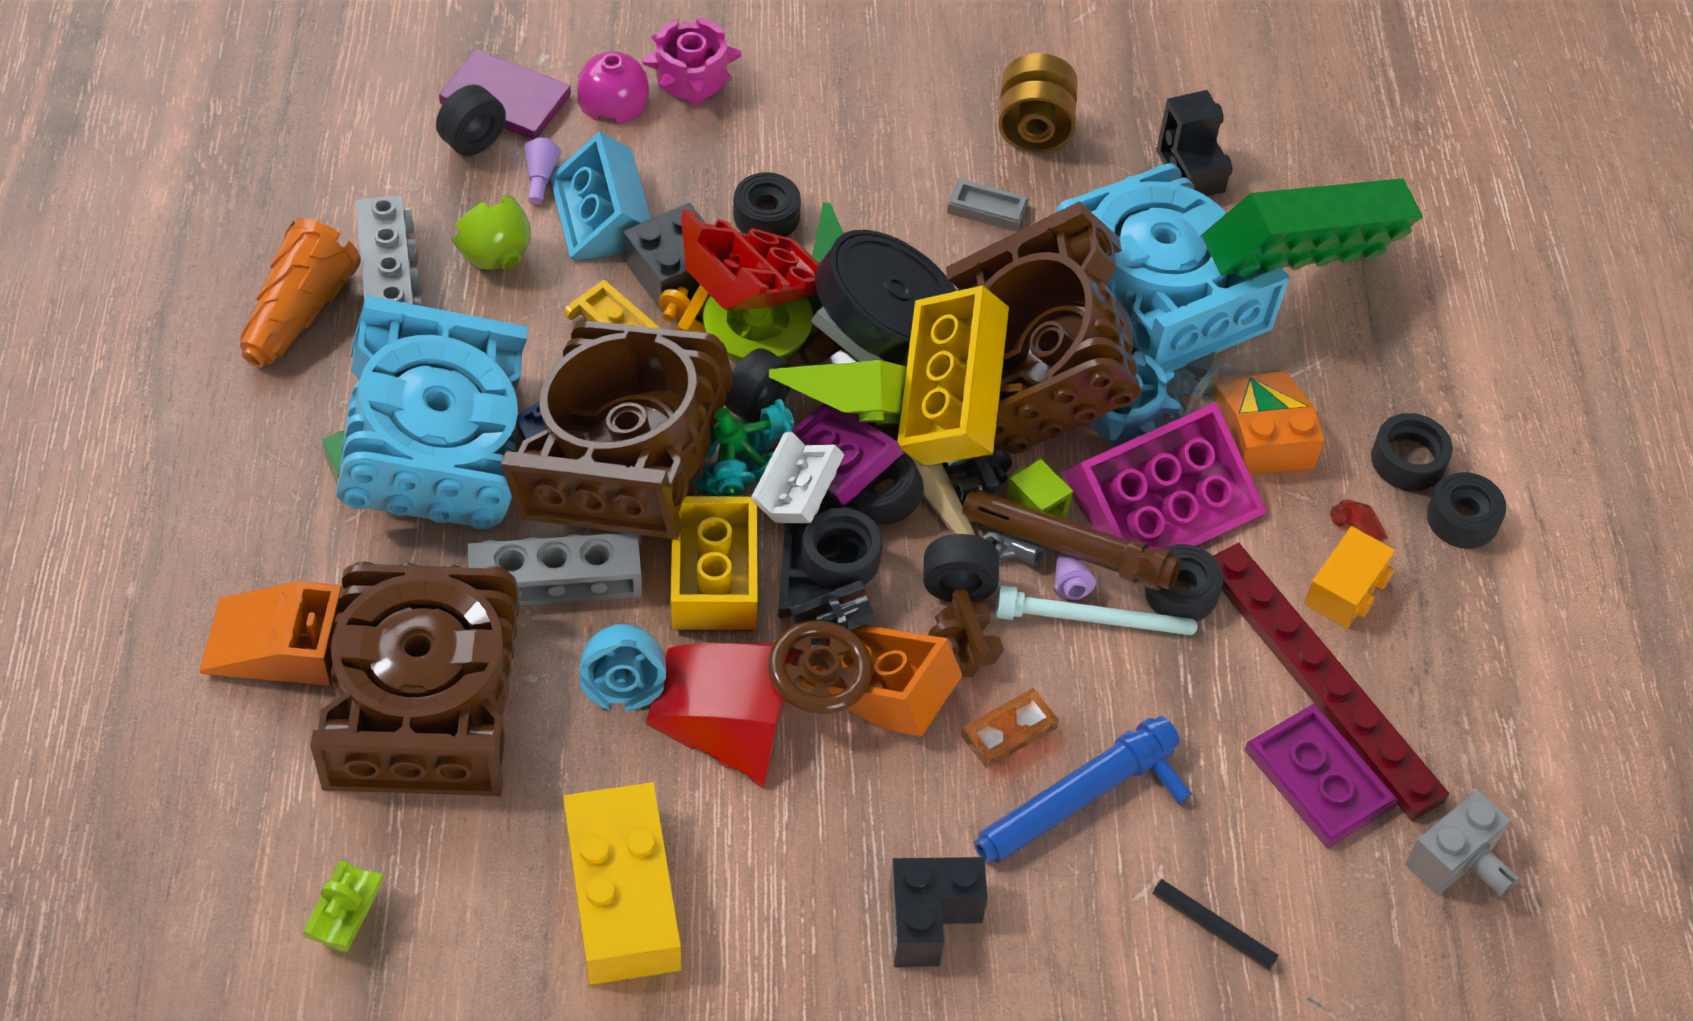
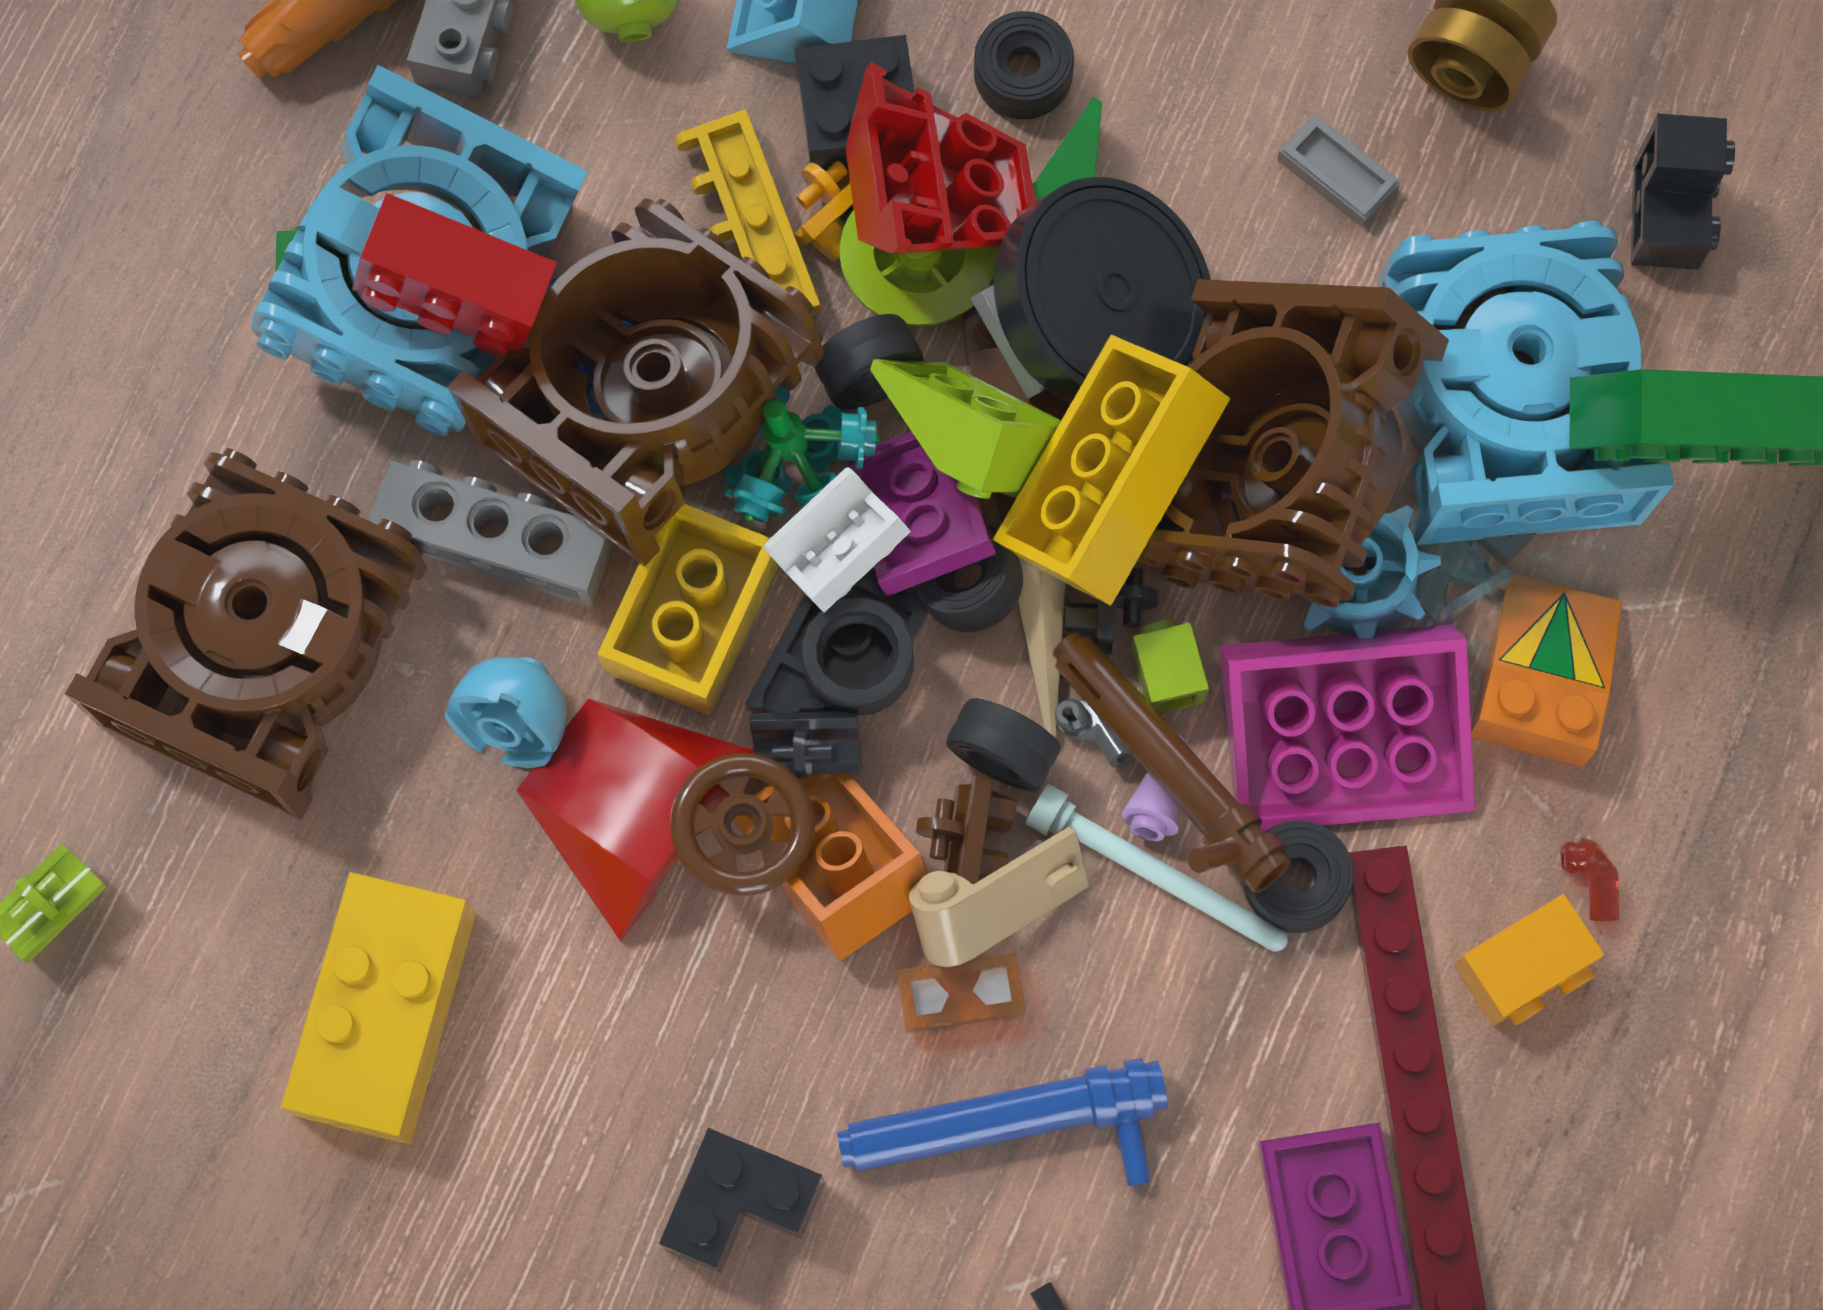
camera: 30 degrees right, 20 degrees up
(275, 634) = (109, 488): orange slope -> none
(478, 391) = (452, 276): none -> red brick
(995, 672) = (967, 919): none -> tan door
(1418, 429) = (1758, 771): black tyre -> none
(1460, 529) = (1774, 895): black tyre -> none

